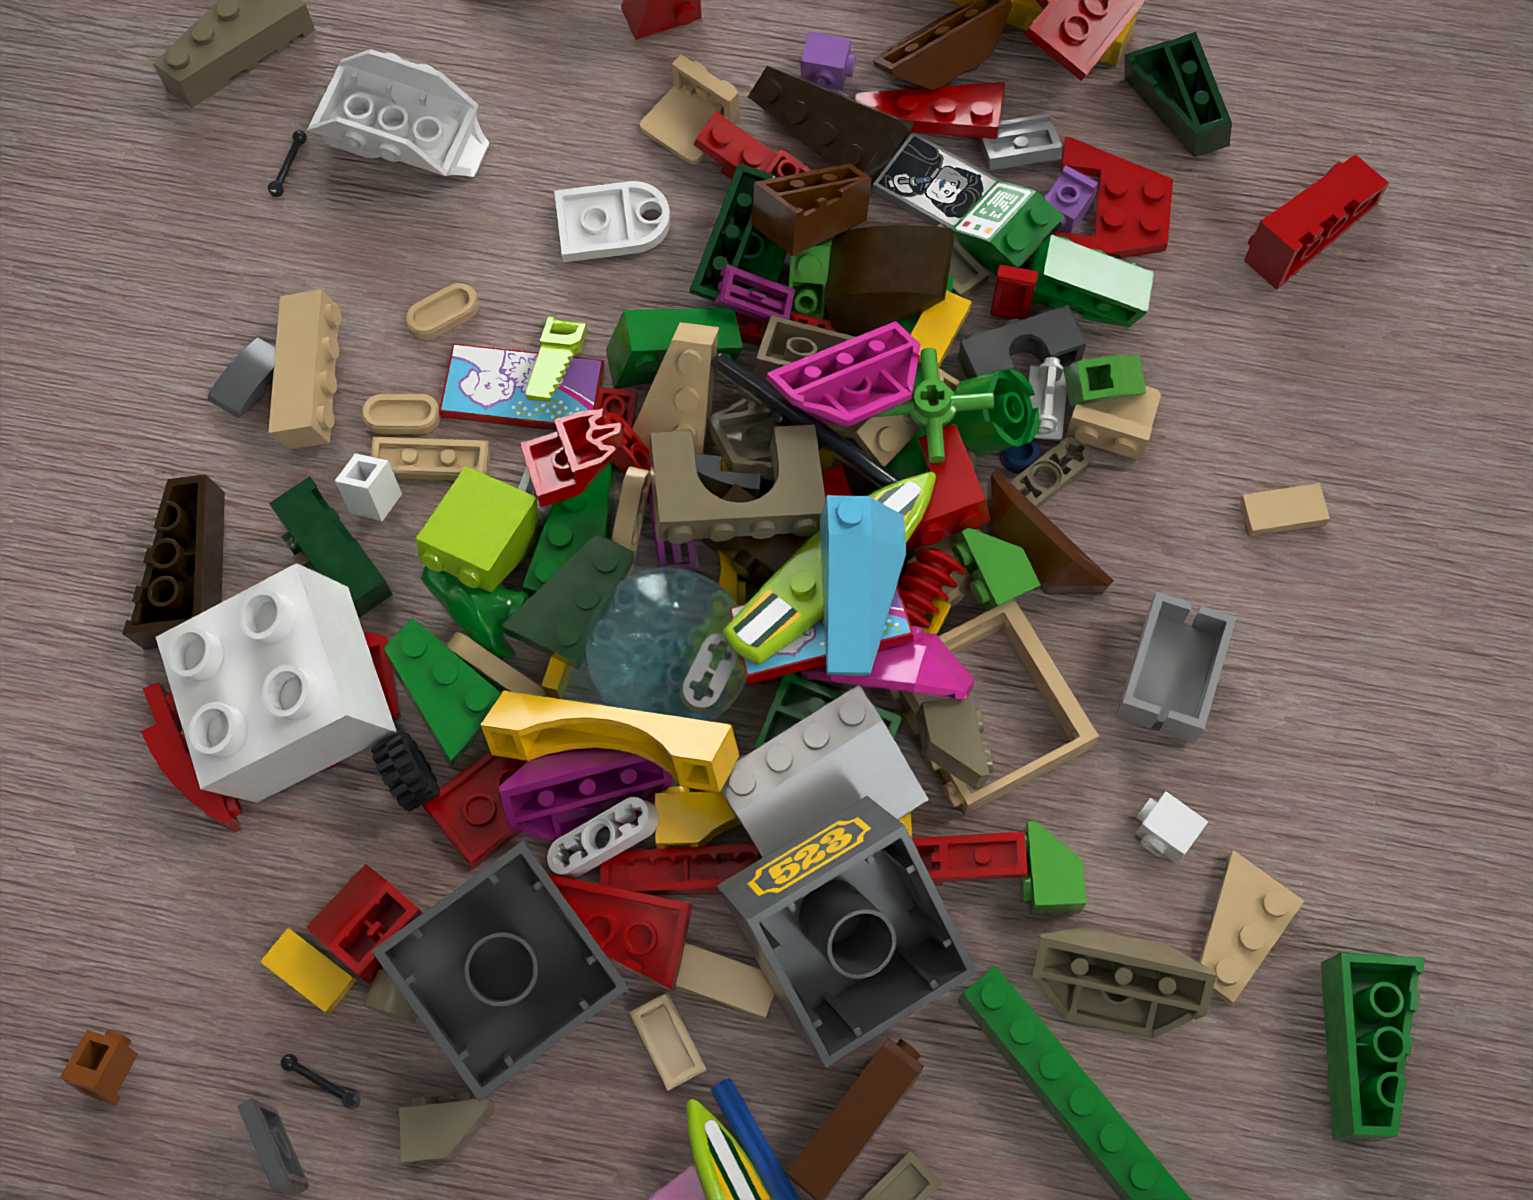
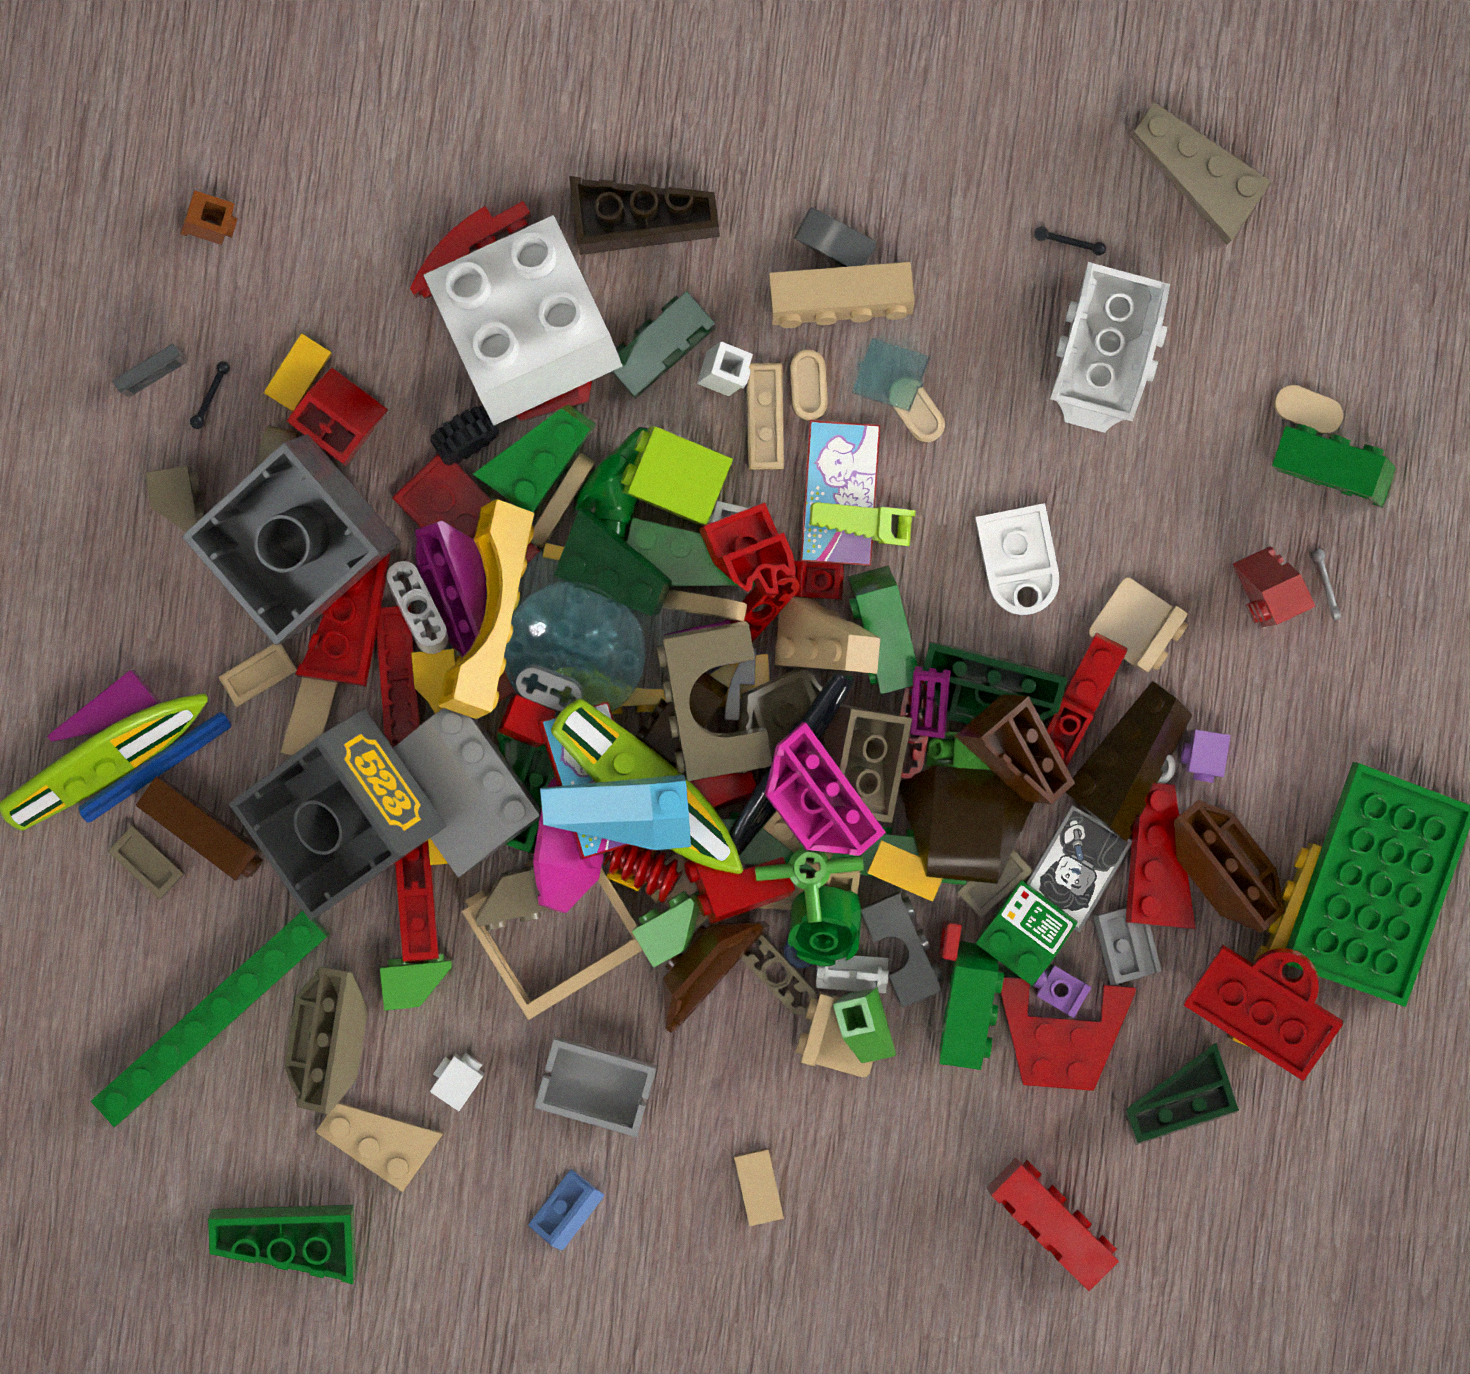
camera: 80 degrees right, 20 degrees up
(400, 329) = (891, 374): none -> clear light blue piece
(746, 705) = (522, 721): none -> red brick
(1317, 718) = (566, 1210): none -> medium blue slope

